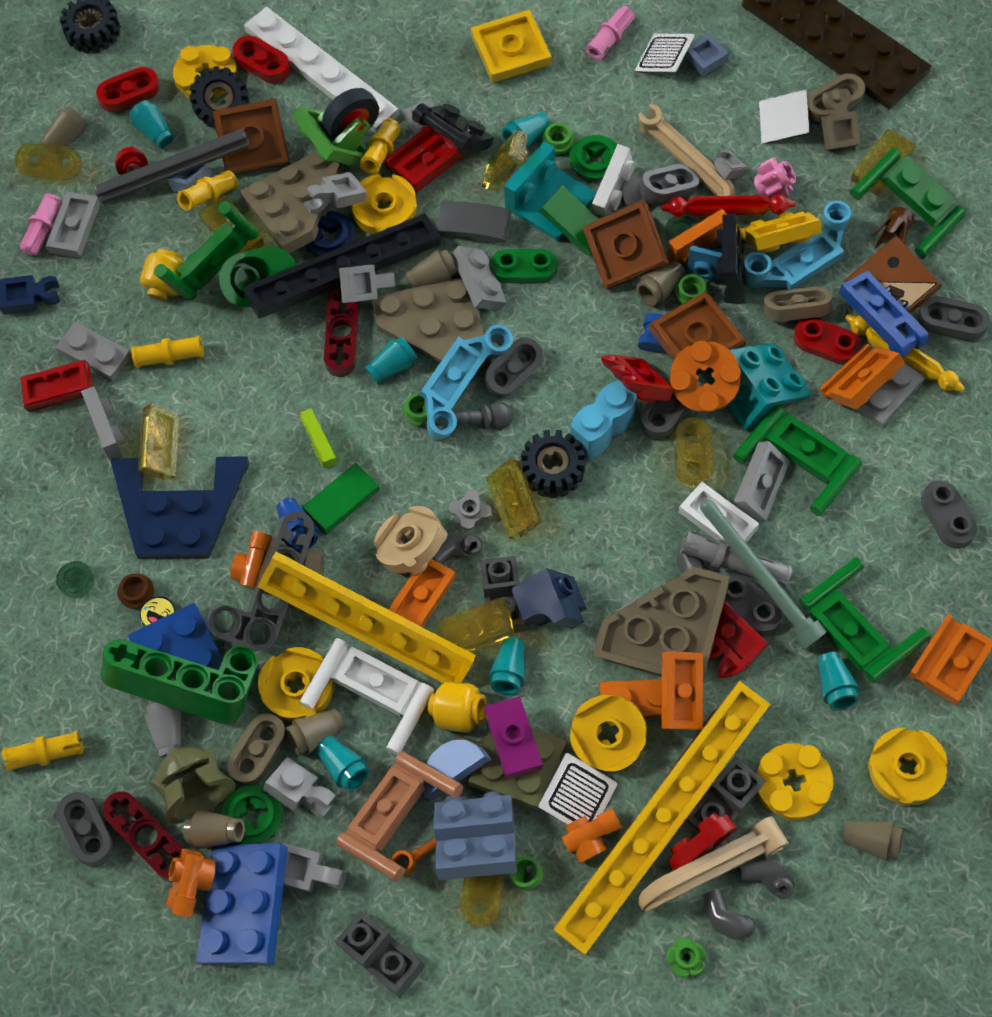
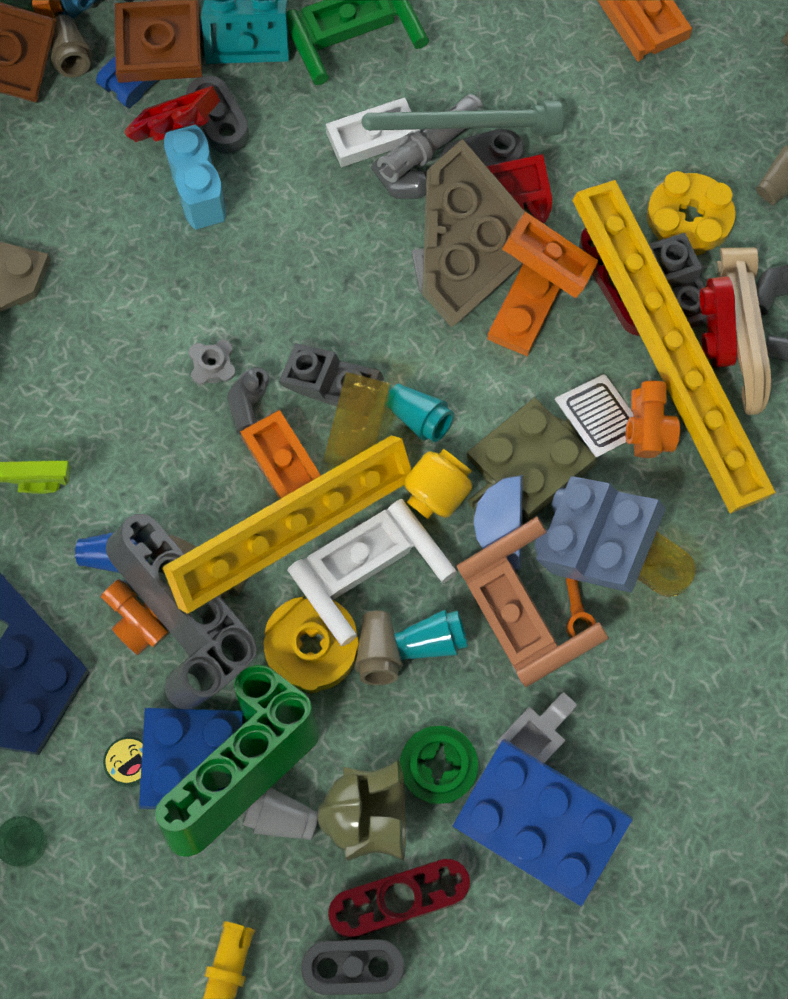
camera: 65 degrees left, 5 degrees up
(135, 590) = (82, 774): reddish brown plate -> none
(188, 874) = (483, 868): orange plate -> none
(212, 829) = (439, 812): dark tan cone -> none
(255, 750) = (366, 723): dark tan plate -> none
(295, 786) = (435, 702): light grey plate -> none
(341, 498) = (108, 486): green tile -> none
(380, 954) = (668, 701): dark grey slope -> none
(410, 409) = (52, 344): bright green plate -> none
(426, 539) = (237, 437): tan plate -> none
(455, 374) = (47, 294): medium azure plate -> none
(497, 415) = (113, 283): dark grey bar -> none
(511, 368) = (72, 238): dark grey plate -> none
(513, 499) = (229, 311): clear yellow plate -> none
(513, 738) = (509, 442): magenta plate -> none
(521, 876) = (668, 499): bright green hinge -> none
(550, 598) = (369, 329): dark blue brick -> none
(559, 478) = (211, 274): black bush -> none
(587, 726) = (533, 365): yellow plate -> none
(690, 282) = (92, 15): bright green plate -> none
(695, 455) = (288, 116): clear yellow plate -> none
(704, 356) = (228, 30): orange plate -> none
(762, 481) = (354, 67): light grey plate -> none
(837, 683) = (611, 121): teal cone -> none
(852, 631) = (564, 80): green plate -> none
(910, 745) = (726, 128): yellow plate -> none

